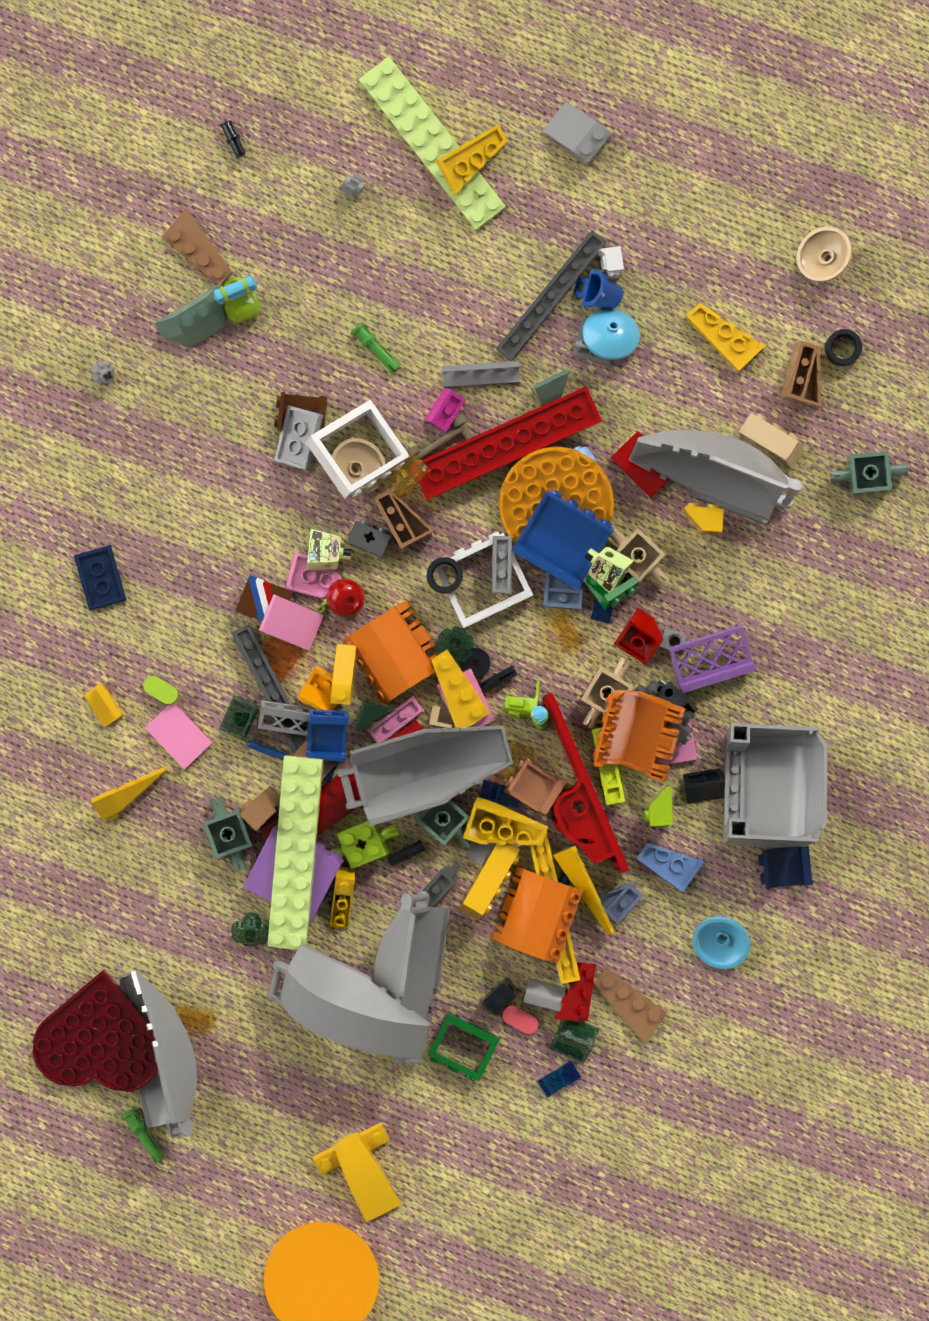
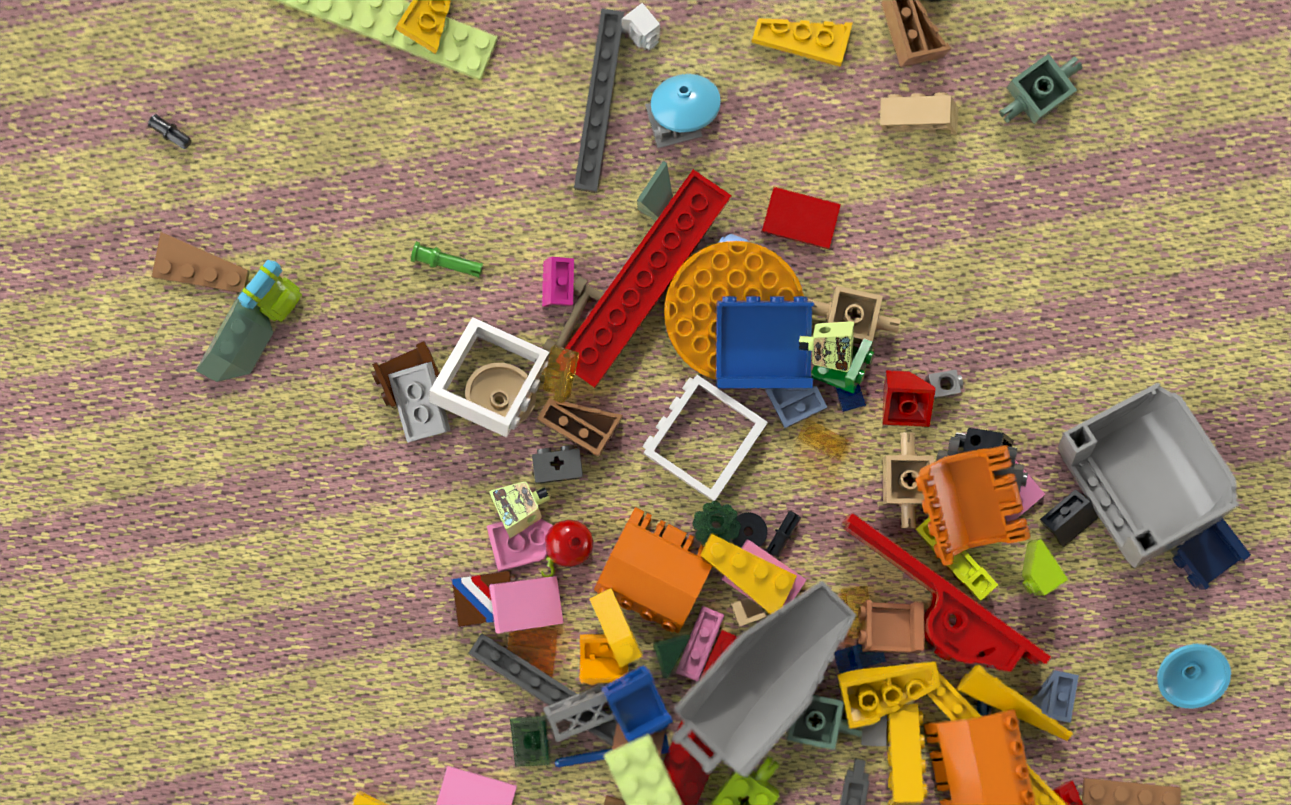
camera: 25 degrees left, 5 degrees down
(100, 577) = (292, 678): dark blue tile -> none
(103, 372) = (169, 455): light grey gear -> none
(161, 690) = (428, 761): lime tile -> none
(353, 186) = (324, 106): light grey gear -> none
(406, 853) = (797, 781): black axle -> none
(449, 561) = (665, 438): black tyre -> none
(480, 374) = (573, 223): light grey fence -> none
(501, 564) = (715, 409): light grey tile -> none
(529, 708) = (835, 545): lime piece -> none
(599, 291) = (646, 65): blue container -> none
(670, 866) = (1087, 626): medium blue wing -> none
(705, 519) = (901, 235): yellow slope -> none
(718, 471) = (884, 177): light grey windscreen -> none
(720, 672) = (1007, 394): medium lavender fence -> none

